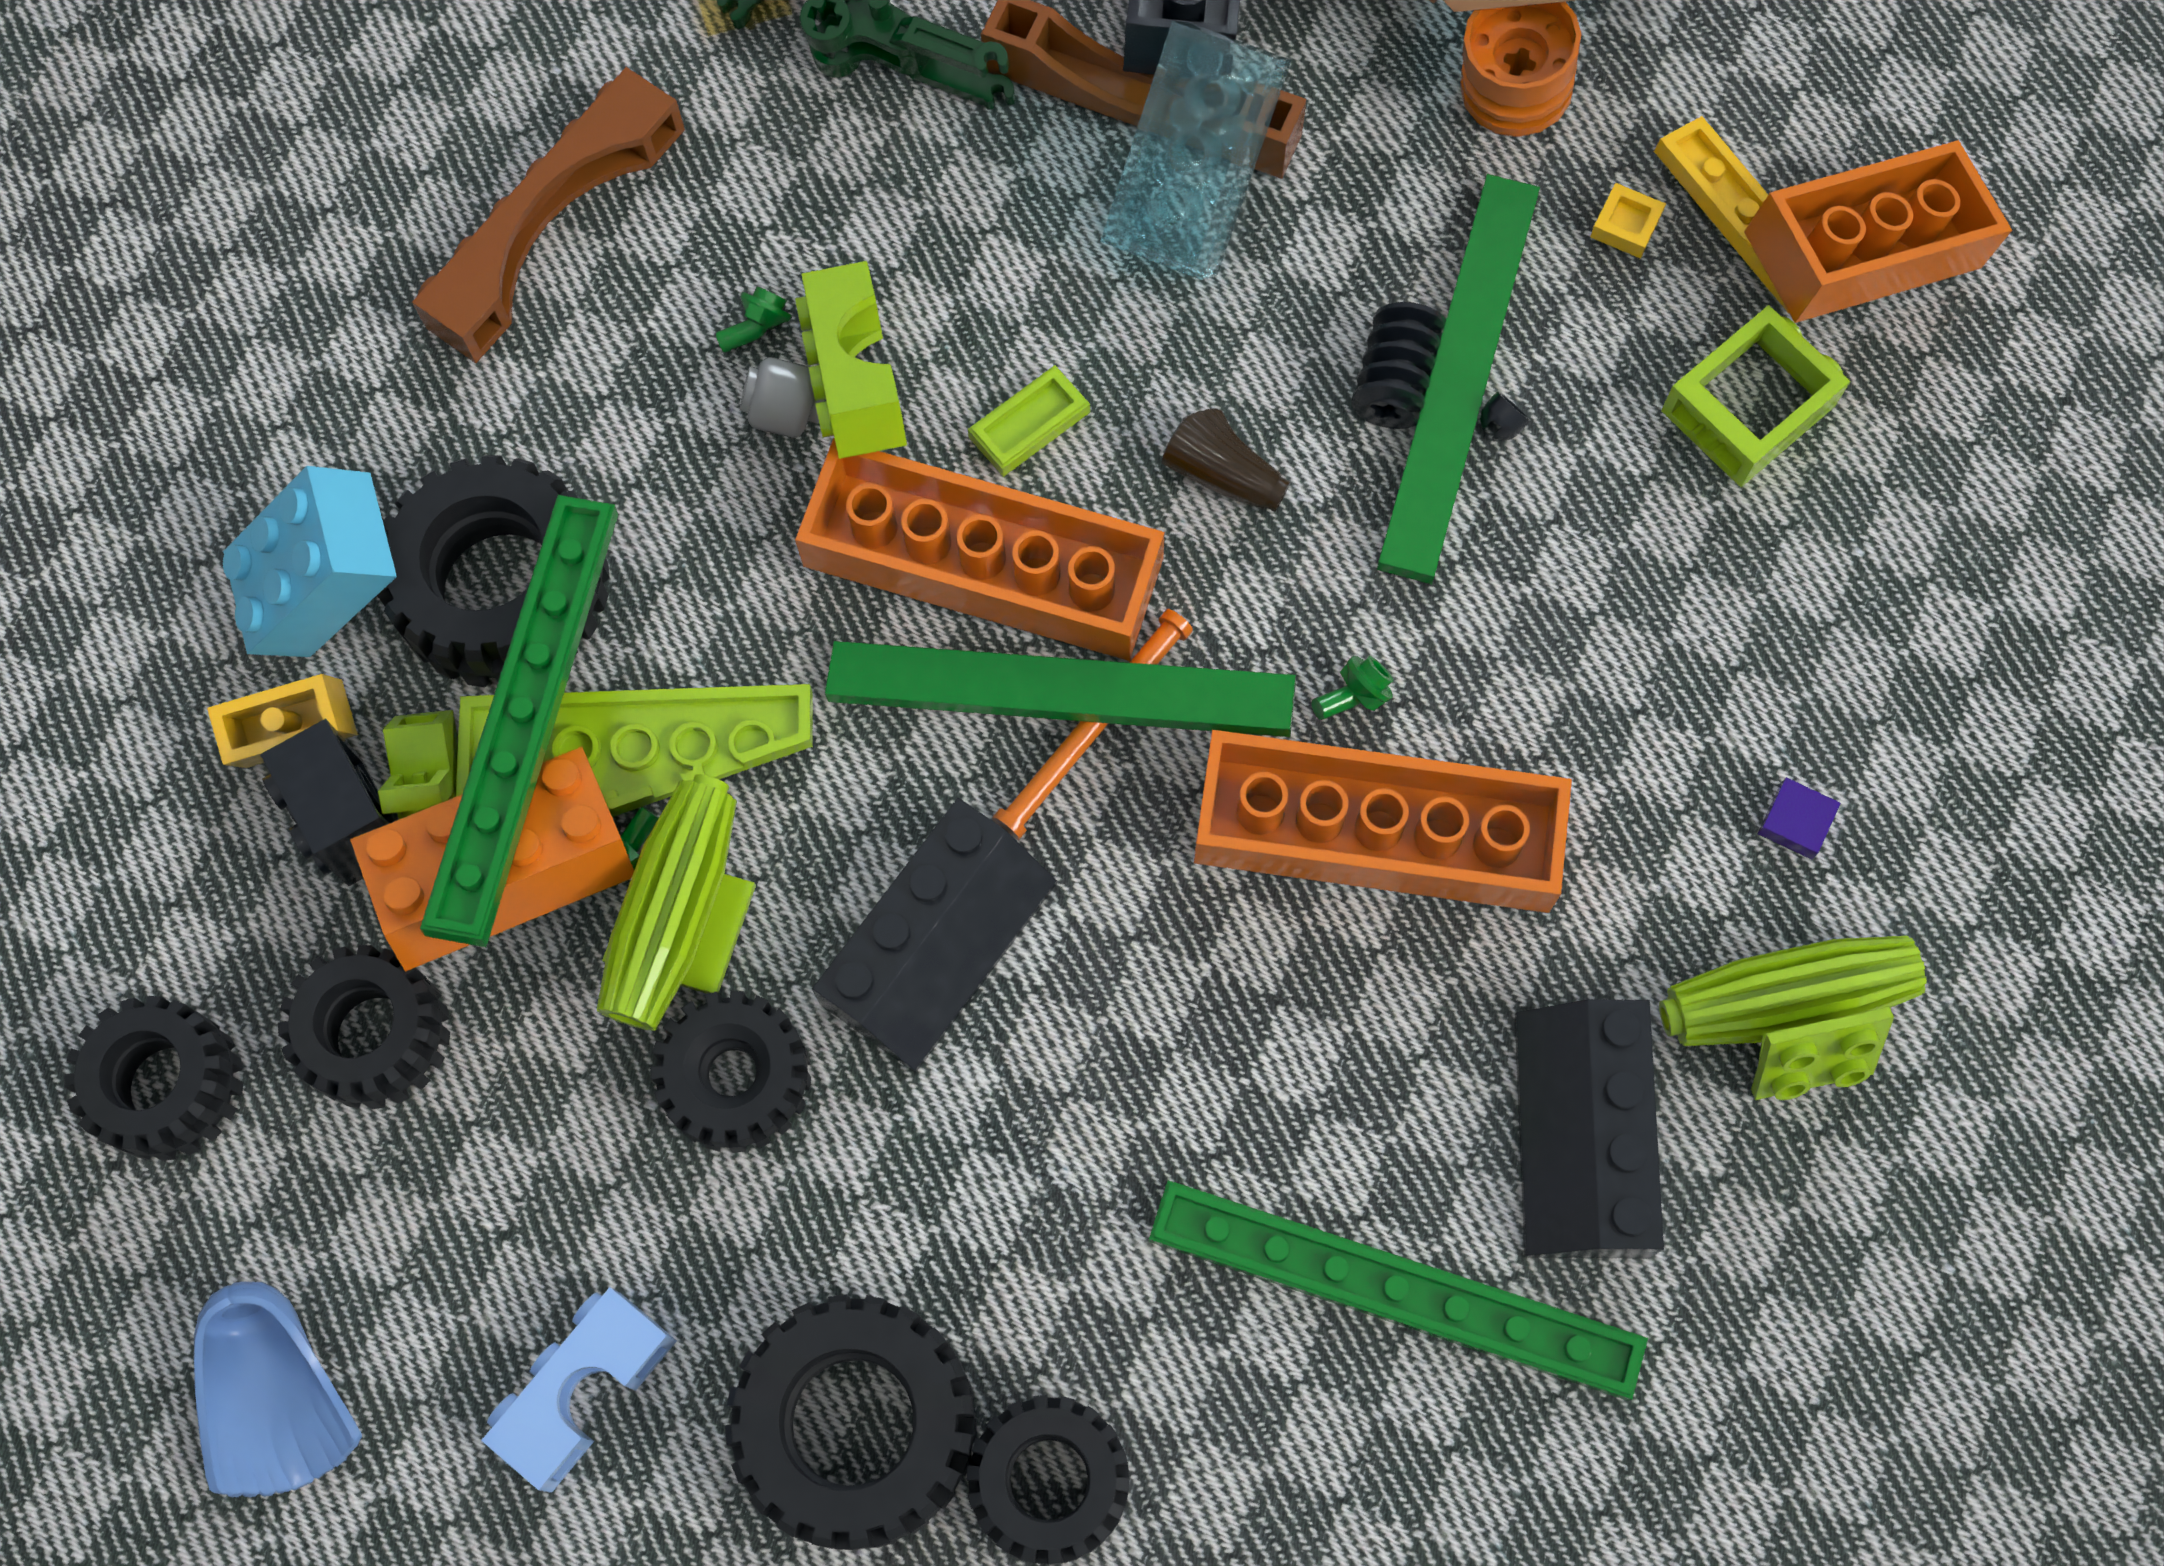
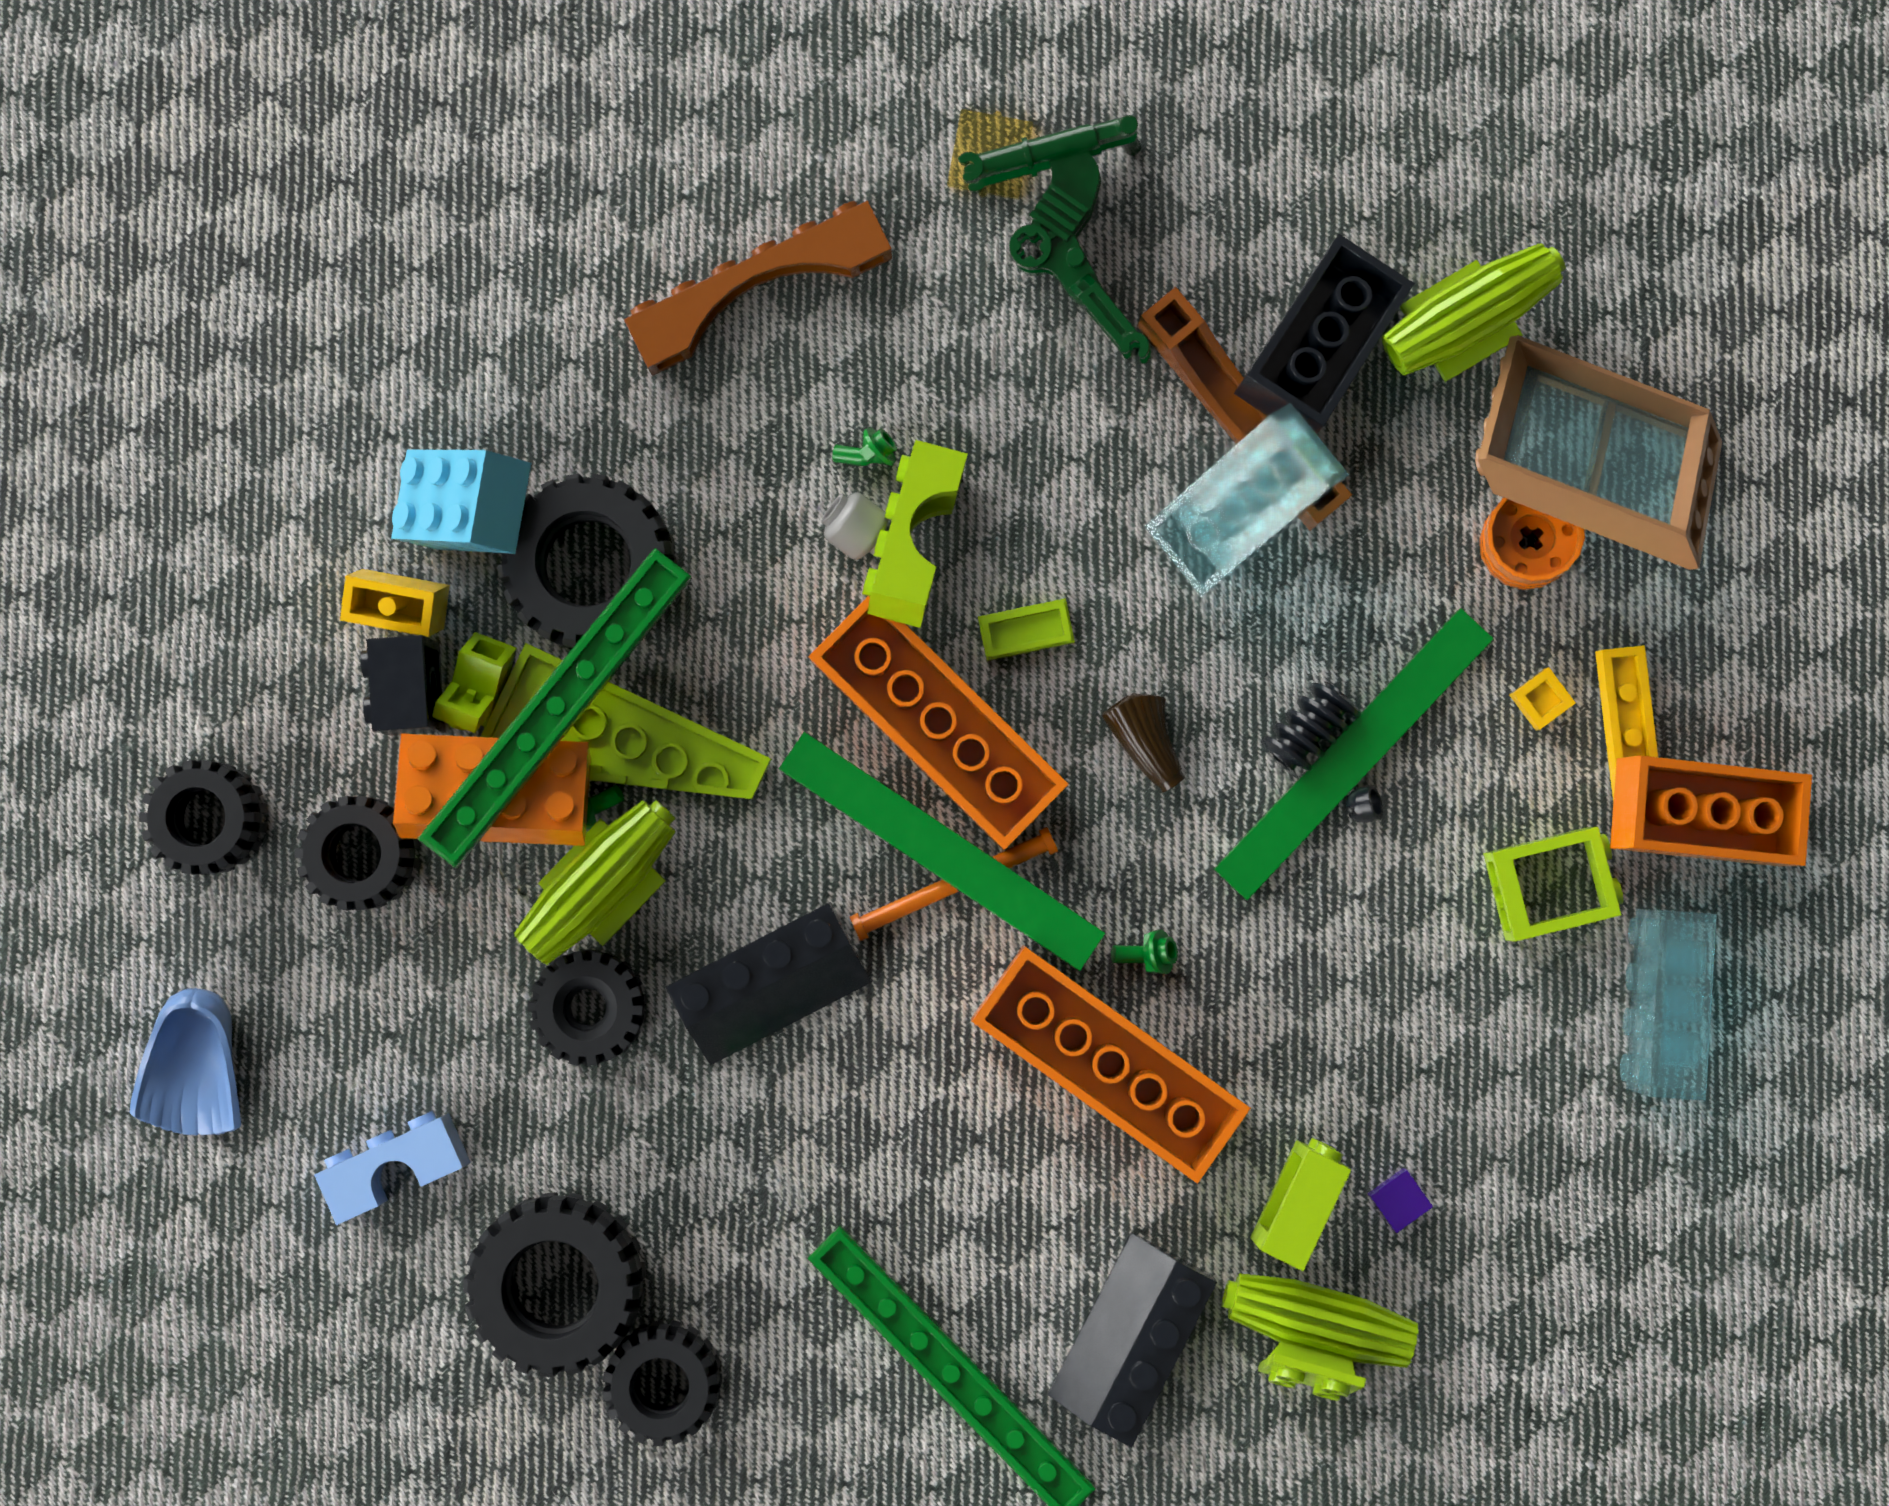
camera: 20 degrees right, 15 degrees up
(1691, 863) = (1301, 1203): none -> lime window
(1961, 444) = (1669, 1003): none -> clear light blue brick

